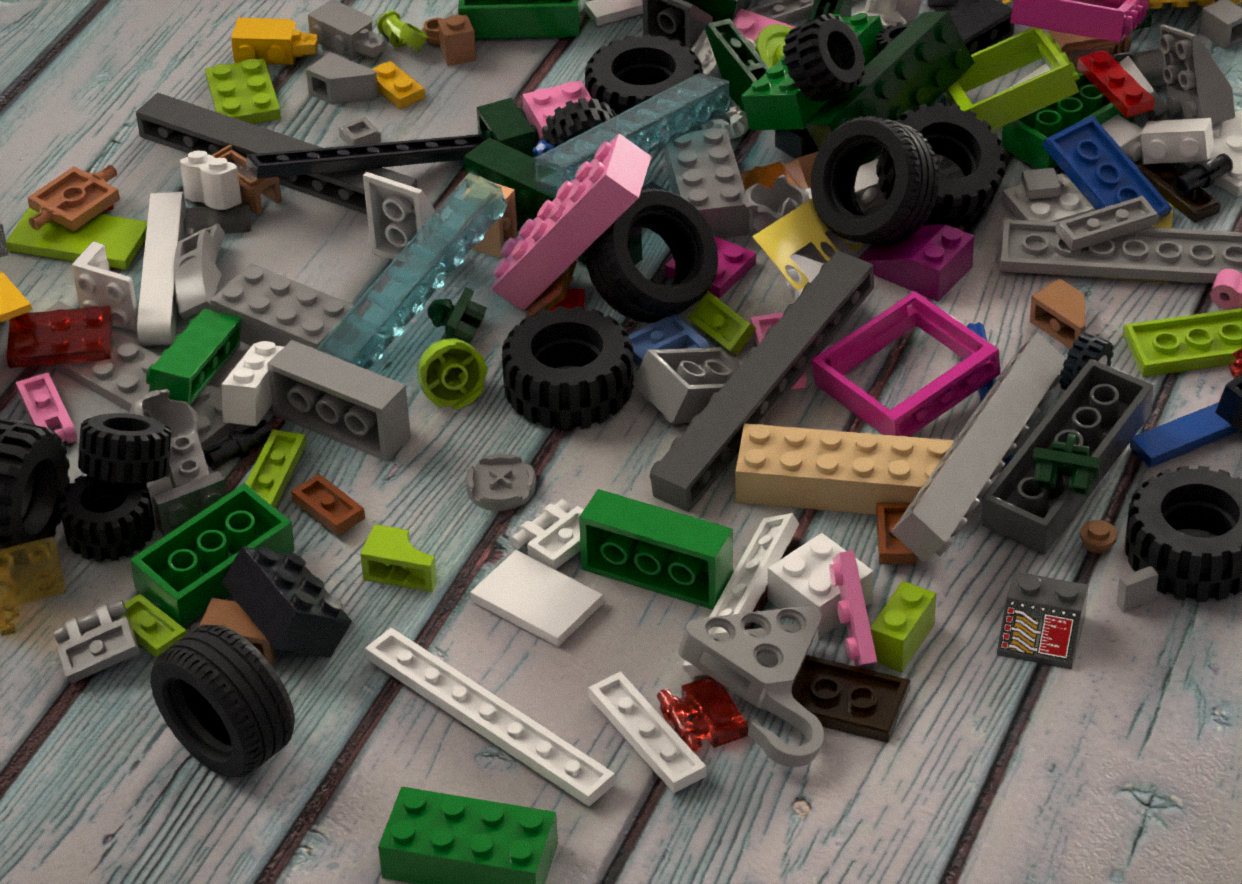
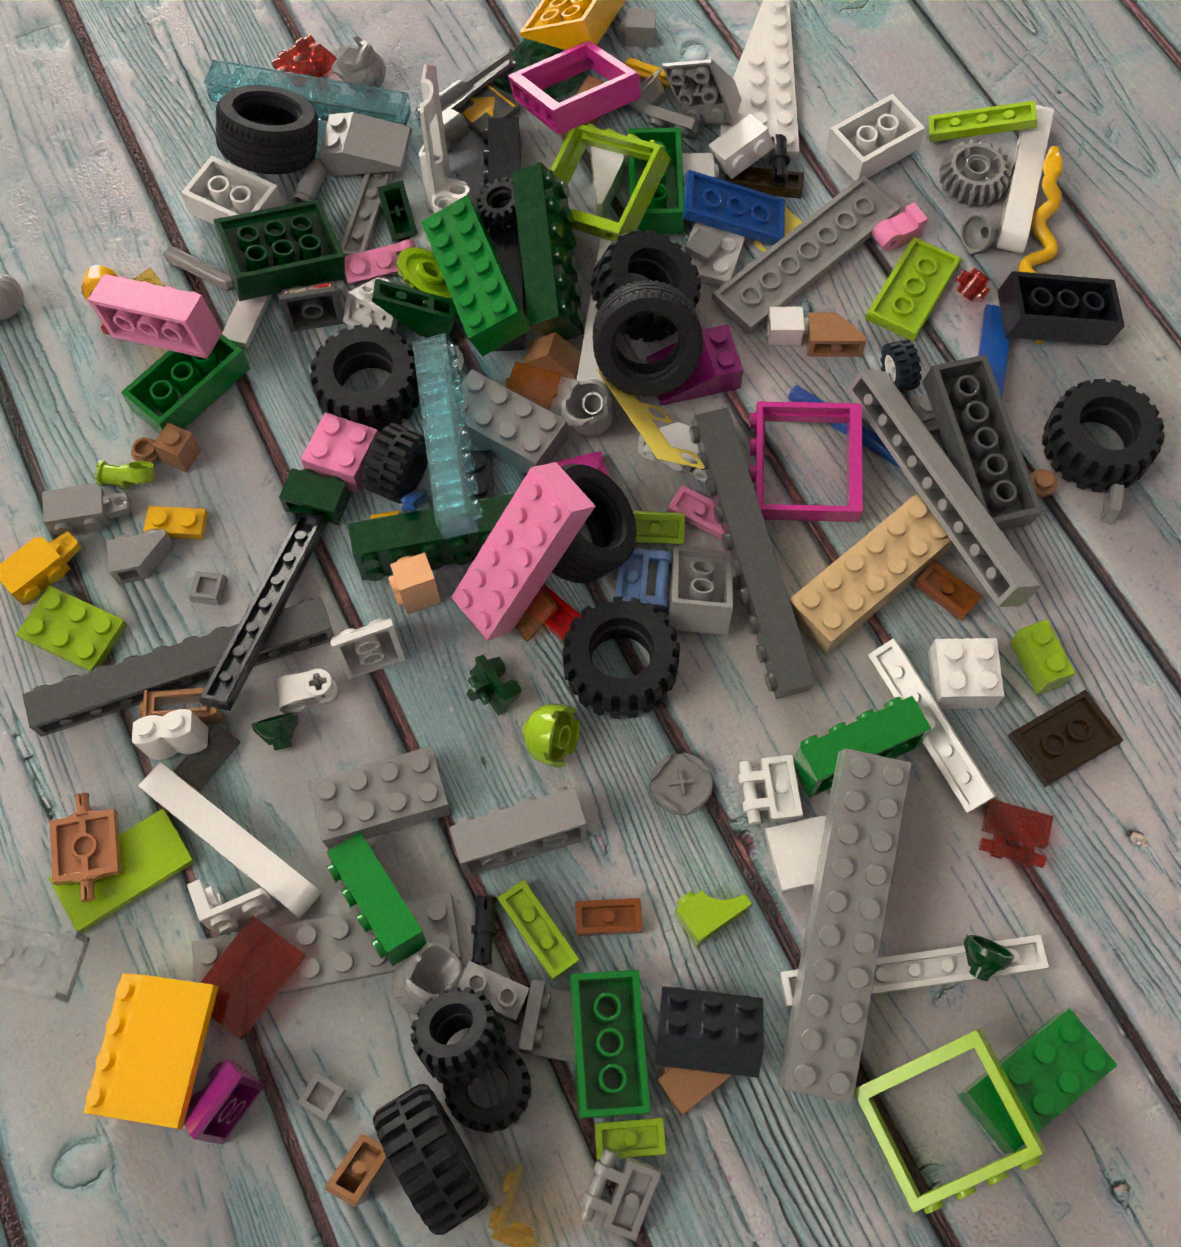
camera: 50 degrees left, 25 degrees up
(45, 406) = (313, 1043): bright pink plate -> none
(196, 271) = (263, 820): light grey slope -> none
(222, 700) = (805, 1165): black tyre -> none
(247, 388) = (447, 878): white brick -> none
(282, 234) = (277, 730): none -> dark green piece
(331, 229) = (301, 690): none -> white piece
(416, 273) = (447, 693): clear light blue brick -> none
(434, 754) = (965, 1184): none -> lime window
(468, 614) = (844, 926): none -> light grey brick
(545, 734) = (986, 956): none -> dark green piece
(647, 732) = (1010, 882): white plate -> none
(761, 670) = (1031, 771): light grey piece -> none
(824, 57) = (512, 267): black tyre -> none
(853, 609) = (1026, 678): bright pink plate -> none
(1029, 277) = (786, 326): none -> white brick
(1043, 620) = (1098, 576): slope -> none
(1066, 460) = (1031, 456): dark green hips -> none
(1107, 223) = (777, 245): light grey tile -> none
(1115, 83) = (666, 131): red plate -> none

